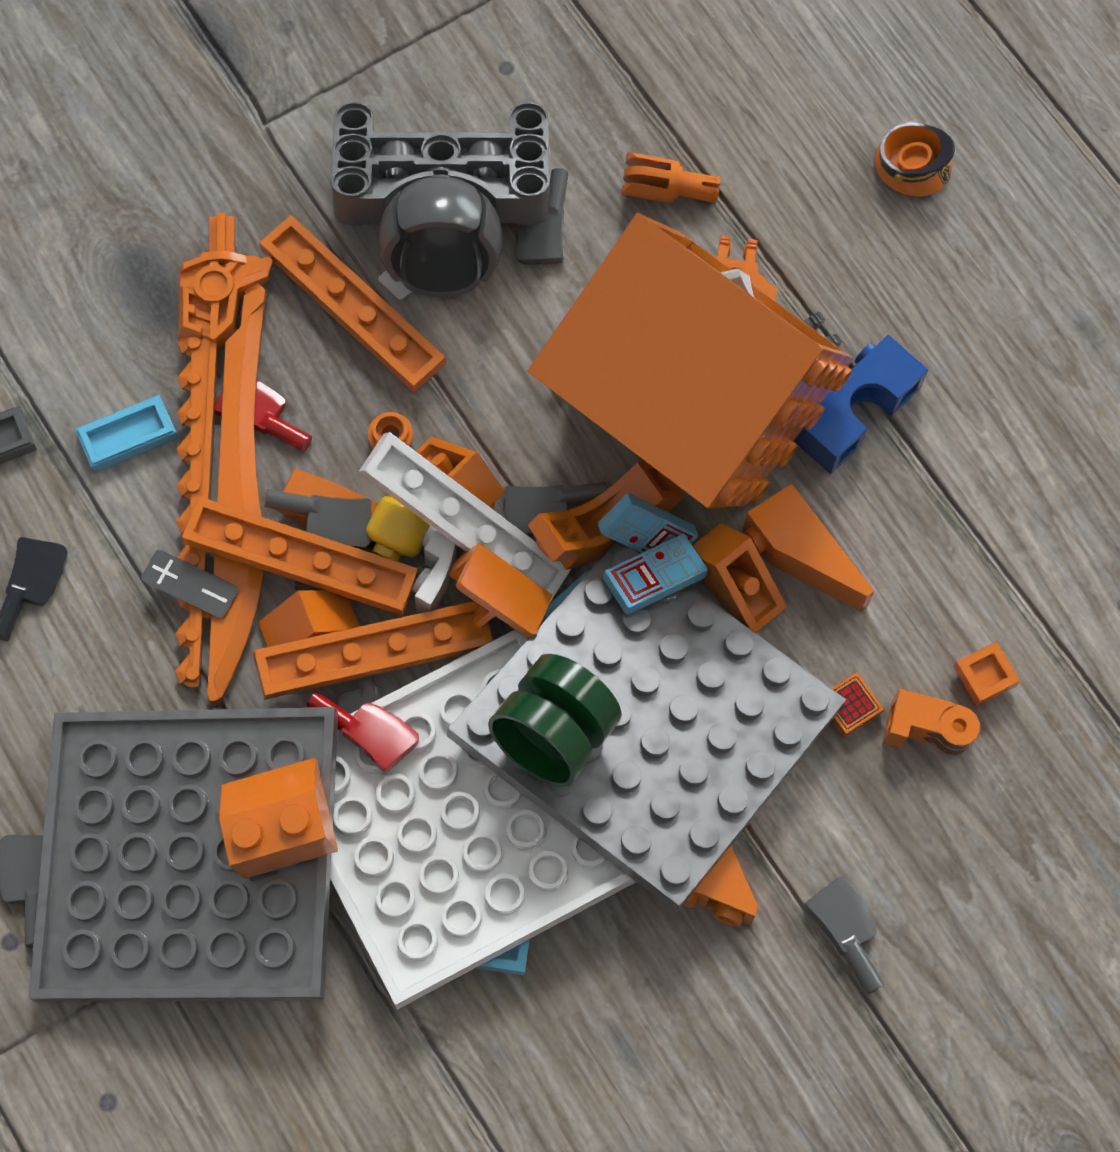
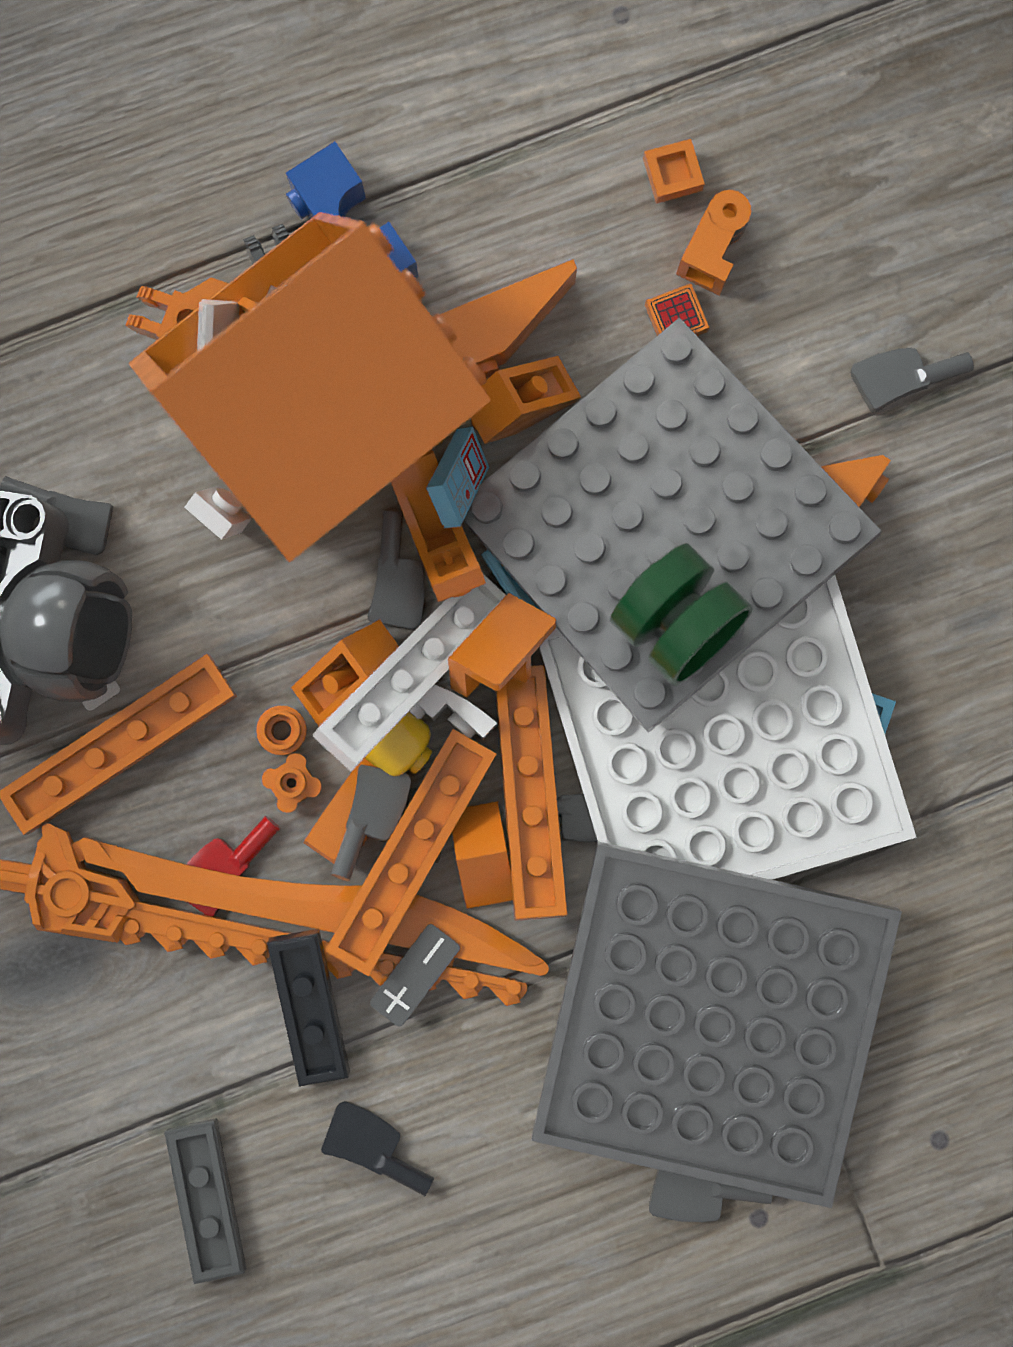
camera: 75 degrees left, 15 degrees up
(126, 433) = (220, 1017): medium azure tile -> none
(145, 500) = (308, 1007): none -> black tile
(276, 819) = (710, 926): orange slope -> none
(344, 463) = (305, 786): none -> orange plate
(374, 731) = (619, 809): piece -> none
(655, 574) = (512, 480): medium azure tile -> none
(665, 180) = (46, 364): orange arm -> none
(915, 159) = (72, 94): orange piece -> none

